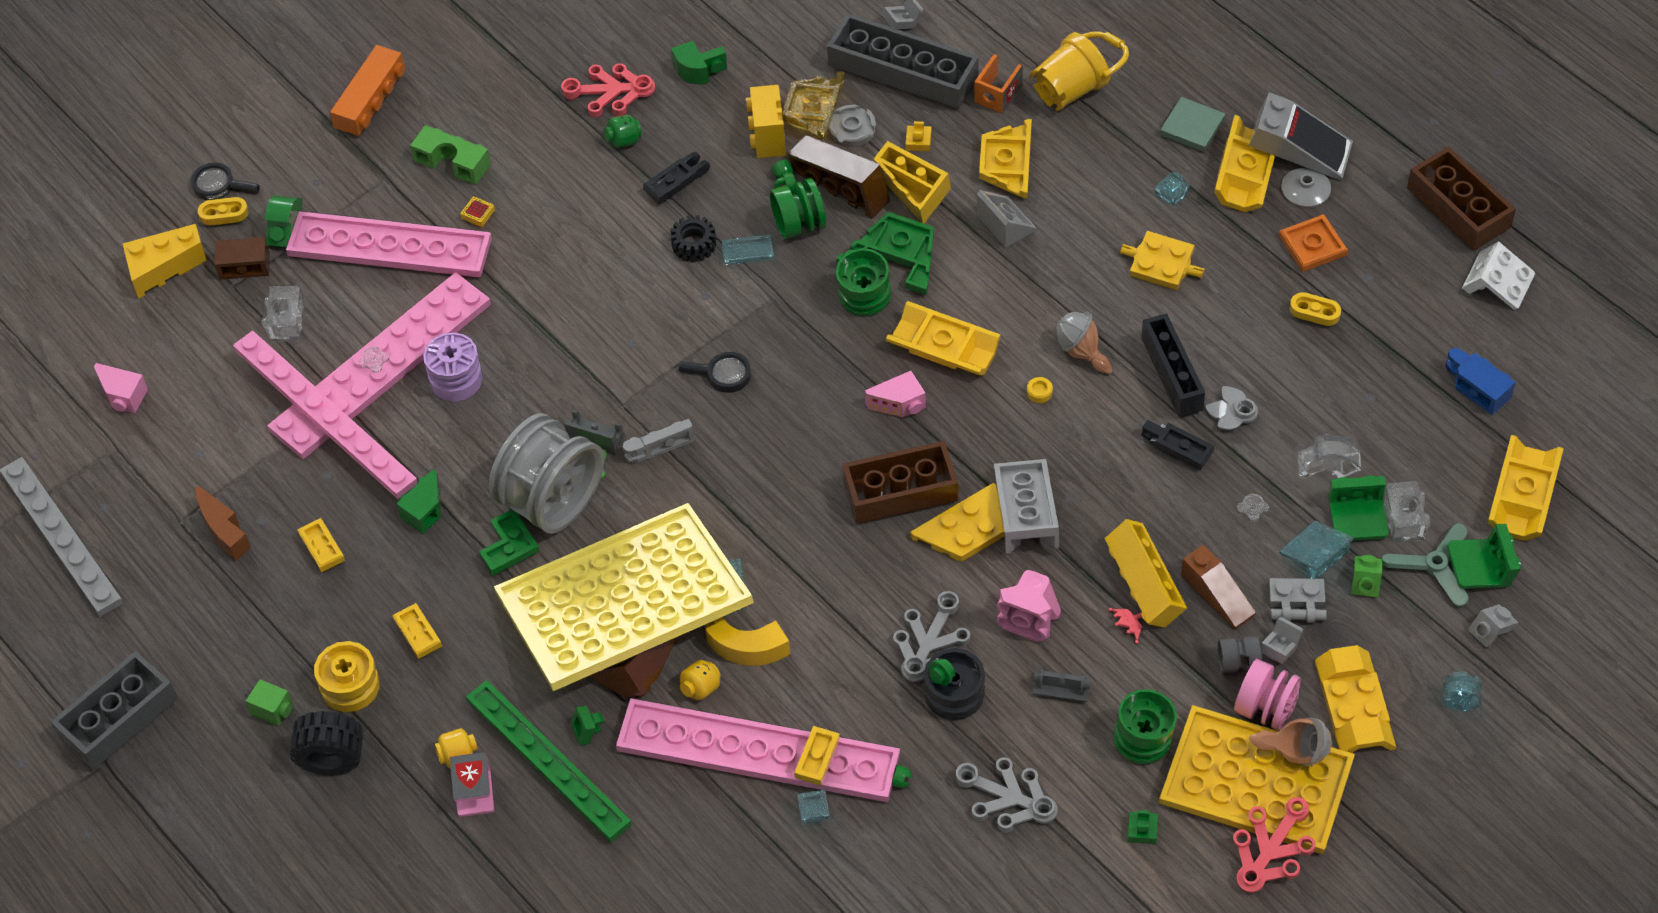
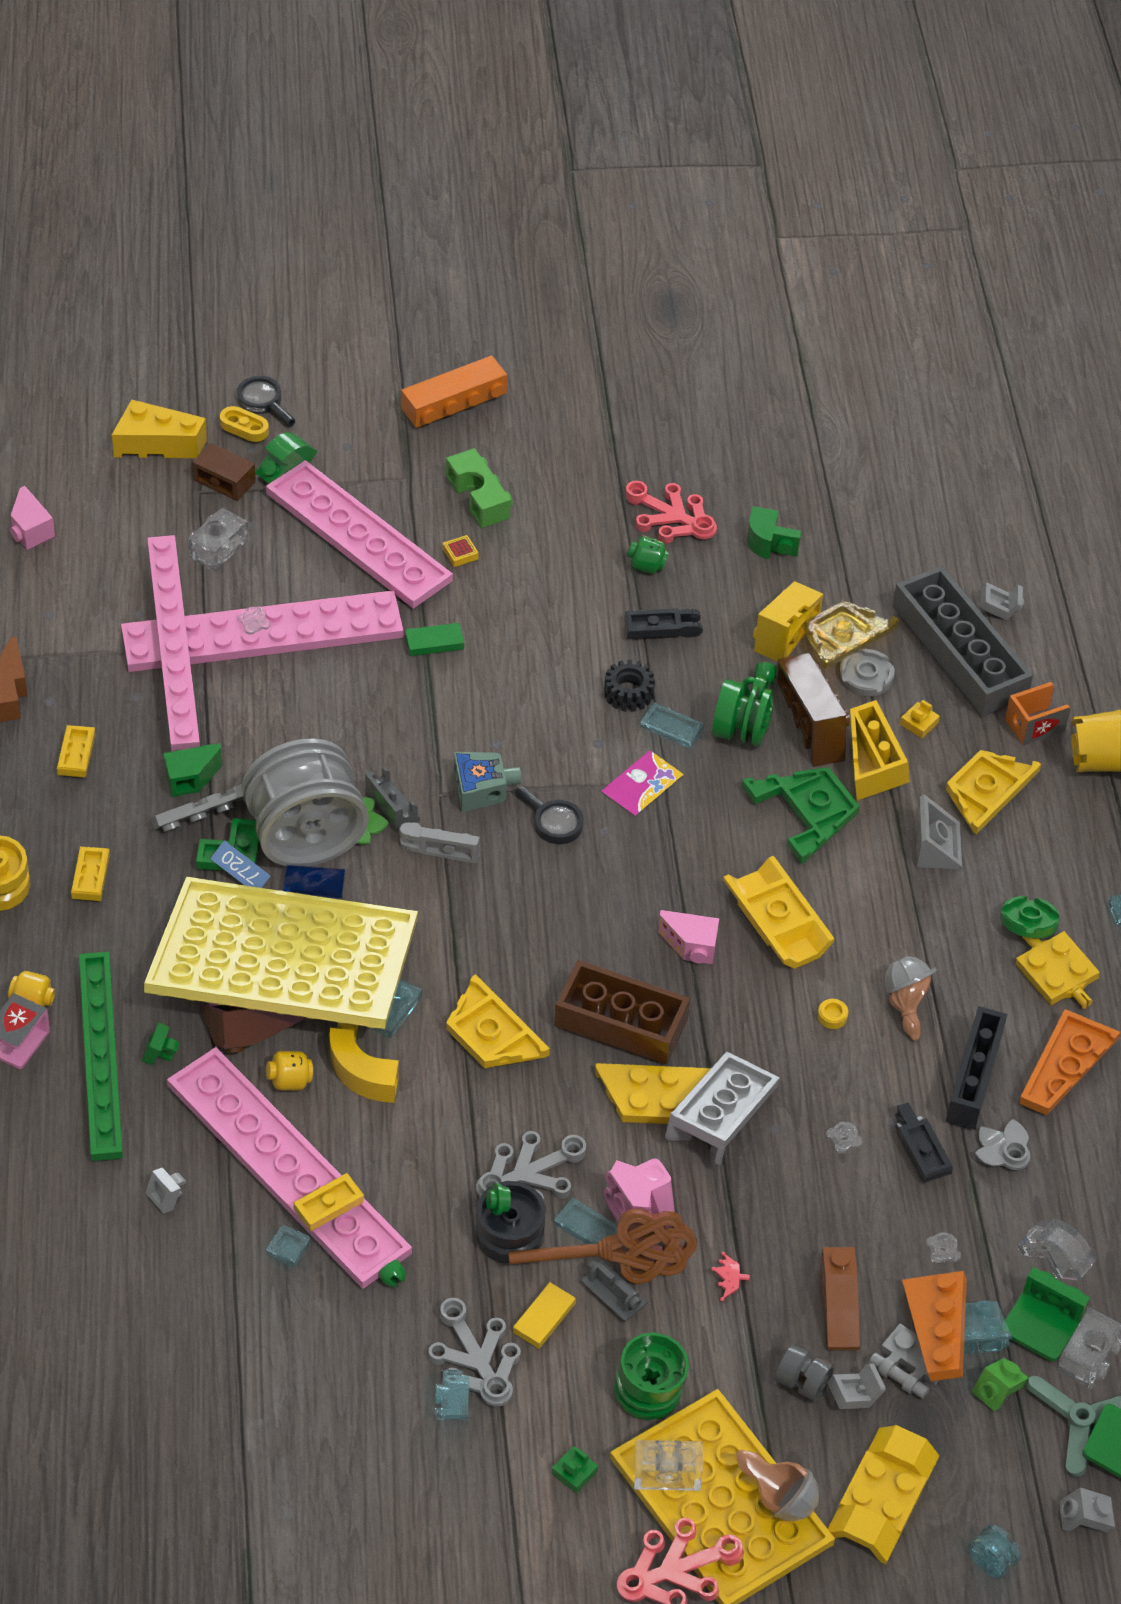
camera: 30 degrees right, 5 degrees down
(453, 366) = (315, 667): lavender wheel -> none
(457, 530) = (170, 819): none -> light grey wing
(517, 291) = (434, 639): none -> green tile
(527, 553) = (239, 866): none -> medium blue sticker
(590, 529) = (315, 881): none -> clear blue tile
(647, 375) = (482, 779): none -> sand green torso
(686, 827) = (164, 1189): none -> light grey tile
(762, 305) = (642, 782): none -> sticker
(816, 554) = (492, 1029): none -> yellow wing
(863, 282) = (746, 814): green wheel -> none
(1005, 651) = (584, 1223): none -> clear light blue tile
(1021, 833) = (453, 1396): none -> clear light blue brick
(1029, 734) = (544, 1315): none -> yellow tile
(1054, 645) = (639, 1246): none -> dark orange piece
(1115, 235) = (1030, 917): none -> green tile
(1123, 466) = (847, 1130): none -> clear plate
(1145, 573) = (779, 1240): yellow brick -> none
(1211, 779) = (668, 1465): none -> clear brick
(1222, 320) = (1068, 1056): none -> orange wing
(1264, 693) = (794, 1424): bright pink wheel -> none
(1298, 558) = (939, 1321): none -> orange wing

